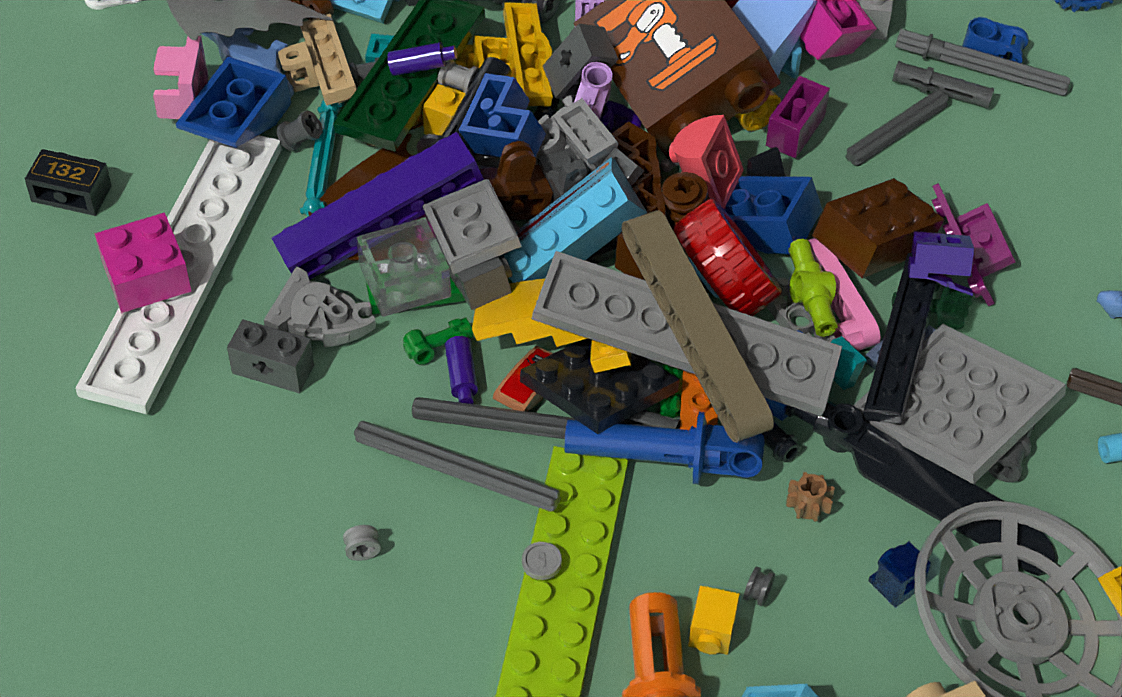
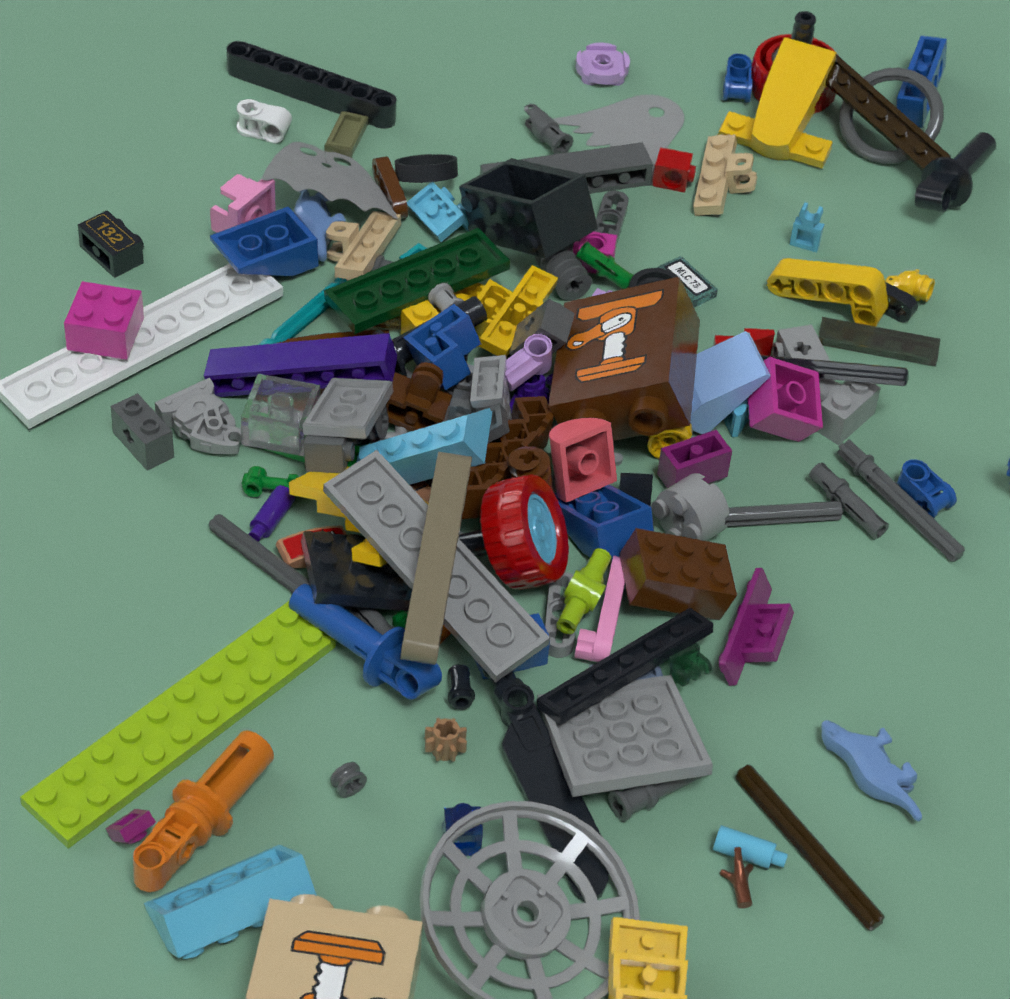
camera: 30 degrees right, 5 degrees down
(300, 130) = (298, 287): dark grey bush -> none
(361, 542) = (93, 590): light grey bush -> none
(420, 58) = (420, 272): dark purple cylinder -> none
(458, 466) = (205, 576): dark grey axle -> none
(541, 560) = (203, 670): light grey piece -> none
(713, 620) = (291, 783): yellow brick -> none
(838, 161) = (692, 508): none -> light grey brick
(849, 364) = (562, 660): teal plate -> none
(939, 255) = (698, 616): dark purple piece -> none

